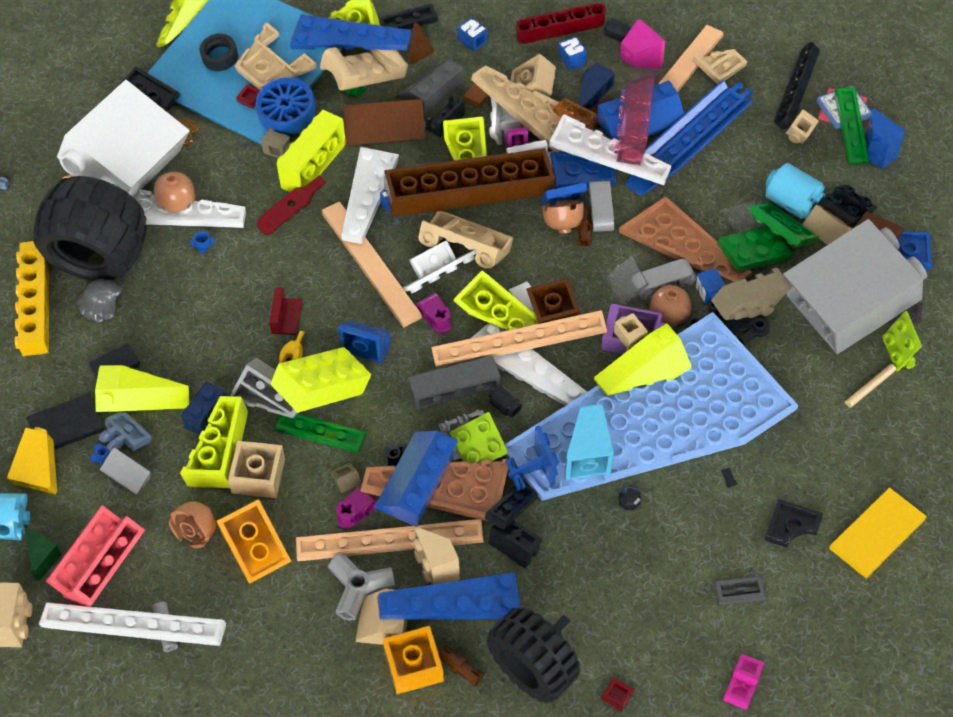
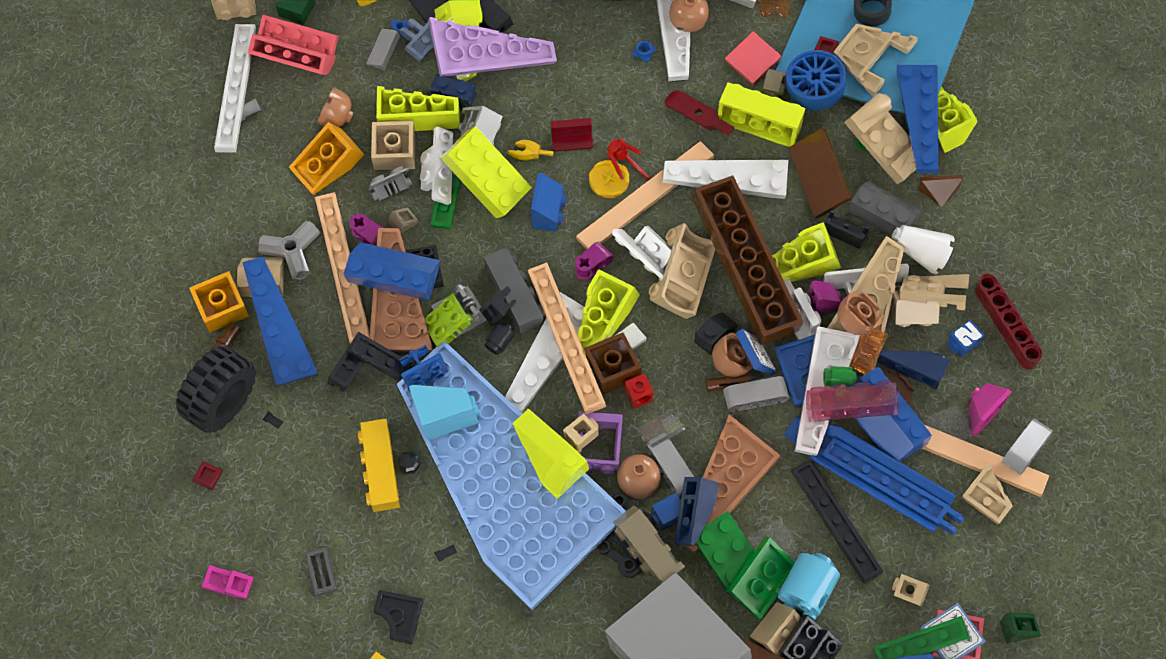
camera: 80 degrees right, 10 degrees up
(166, 368) = (479, 49): none -> lavender wing
(240, 155) = (753, 58): none -> coral tile
(293, 435) = (434, 171): none -> white bracket
(300, 479) = (396, 175): none -> light grey hinge
(317, 274) = (618, 150): none -> red plant
(342, 290) = (606, 181): none -> yellow tile
(405, 20) = (975, 171): black plate -> none
(436, 556) = (316, 301): tan slope -> none
(472, 34) = (968, 235): blue brick -> none
(476, 388) = (495, 307): none -> black hinge
(485, 51) = (925, 246): none -> white cone
(525, 65) = (932, 288): none -> tan wing
(533, 227) = (713, 331): none -> black slope
(547, 108) = (859, 313): none -> nougat cylinder
(585, 291) = (639, 391): none -> red brick
(605, 131) = (839, 375): none -> green brick
(616, 29) = (1014, 380): black brick -> none
(631, 521) = (379, 465): none -> yellow brick
(681, 30) = (1027, 446): none -> beam
(720, 258) = (696, 506): none -> dark blue slope
(729, 171) = (837, 521): none -> black tile
(797, 86) = (977, 581): black beam -> none
(839, 68) = (1019, 627): none -> dark green slope

